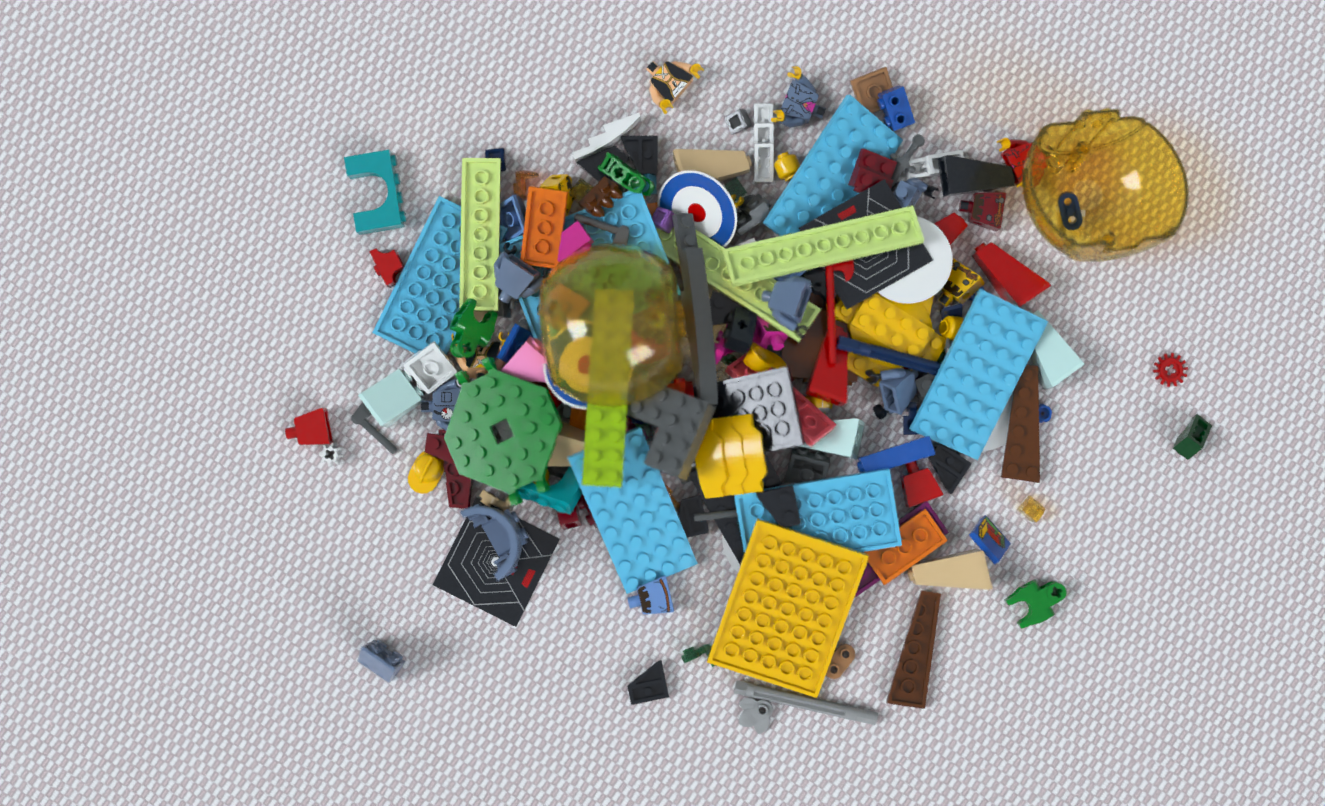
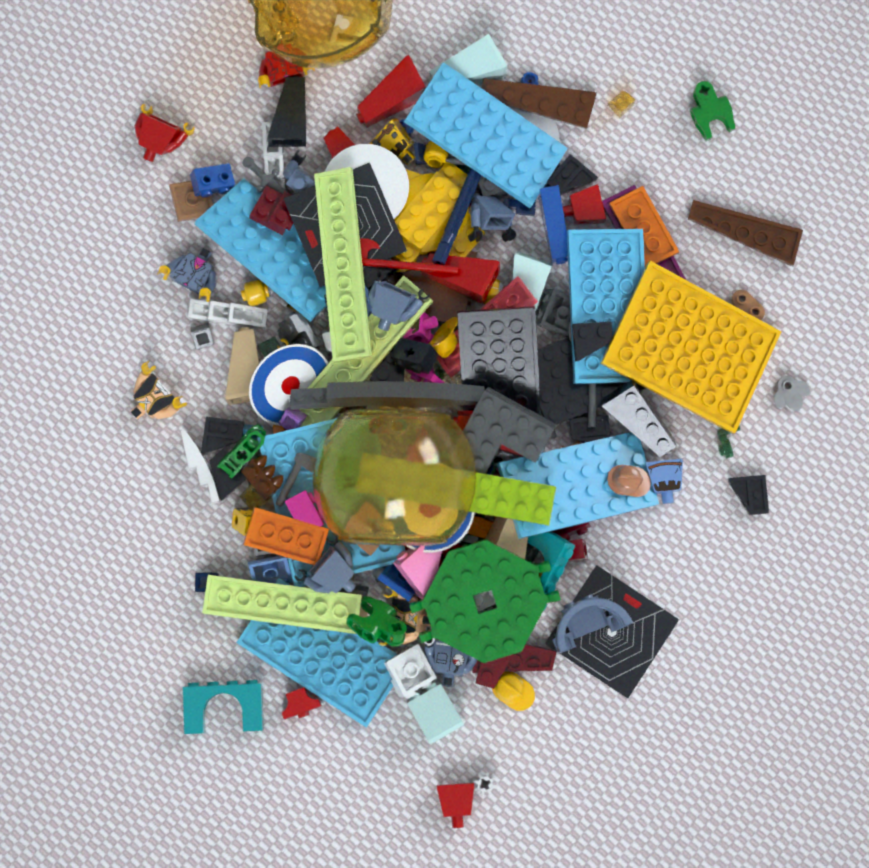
camera: 90 degrees left, 5 degrees down
(360, 417) = (450, 752): dark grey piece -> none
(381, 660) = (699, 756): sand blue slope -> none
(489, 499) = (549, 628): tan plate -> none
(520, 185) = (237, 560): clear orange plate -> none
(644, 561) = (629, 480): none -> nougat piece
(711, 561) = (638, 416): none -> wedge
(731, 457) = (538, 379): yellow slope -> none
(805, 702) = (784, 343): light grey piece -> none
(935, 48) = (158, 135): none -> red torso
(956, 570) = (672, 183): tan slope -> none
(985, 209) = (324, 108): dark red torso -> none
(989, 539) = (646, 146): blue tile -> none
(1069, 210) = (336, 27): dark blue plate -> none

